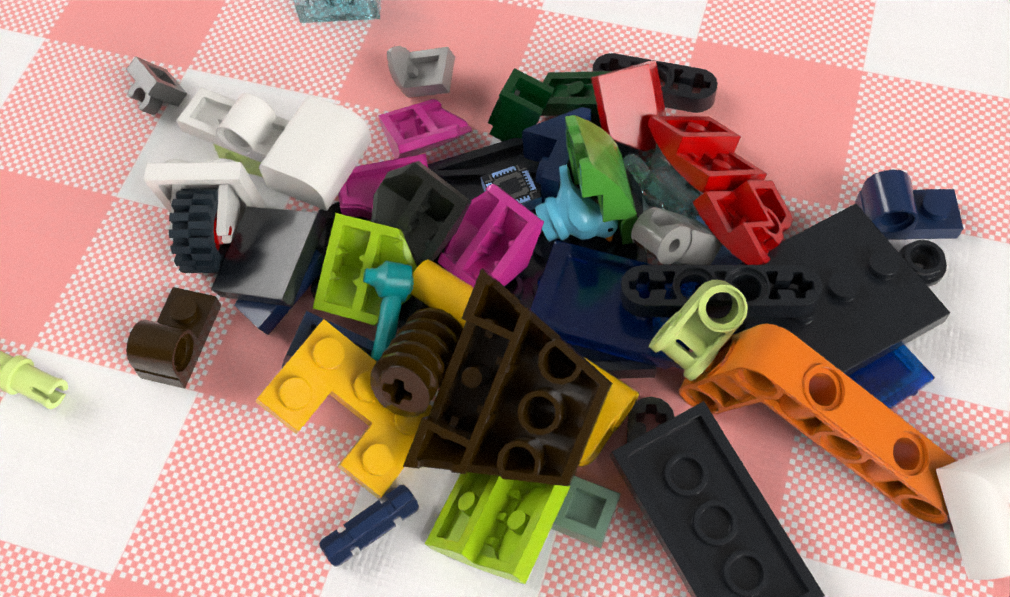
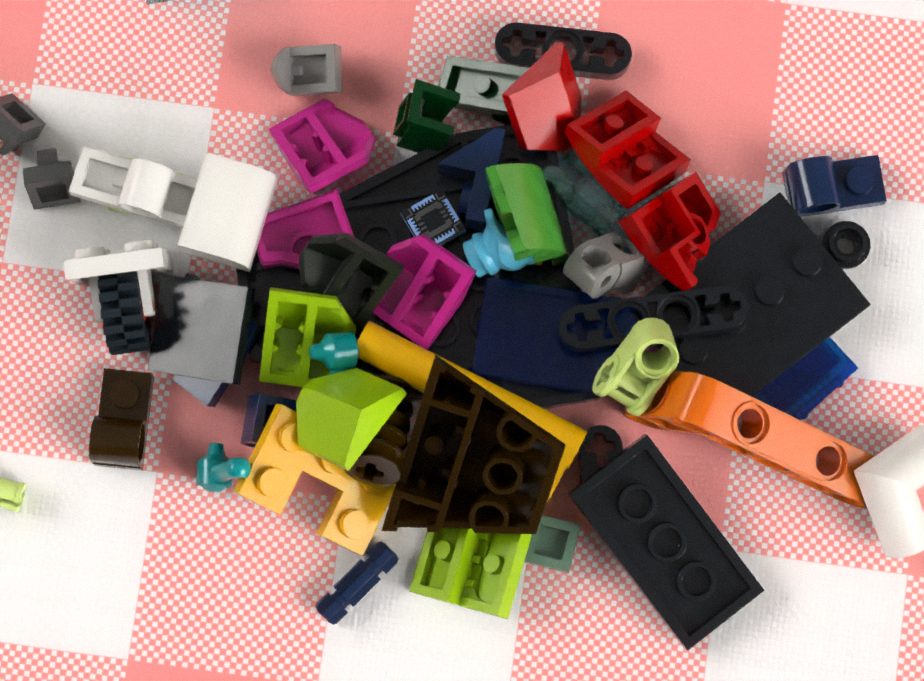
camera: 15 degrees left, 20 degrees up
(166, 134) = (49, 181): none -> dark grey tile
(250, 386) = (217, 471): none -> teal piece
(379, 331) = (343, 414): none -> lime slope

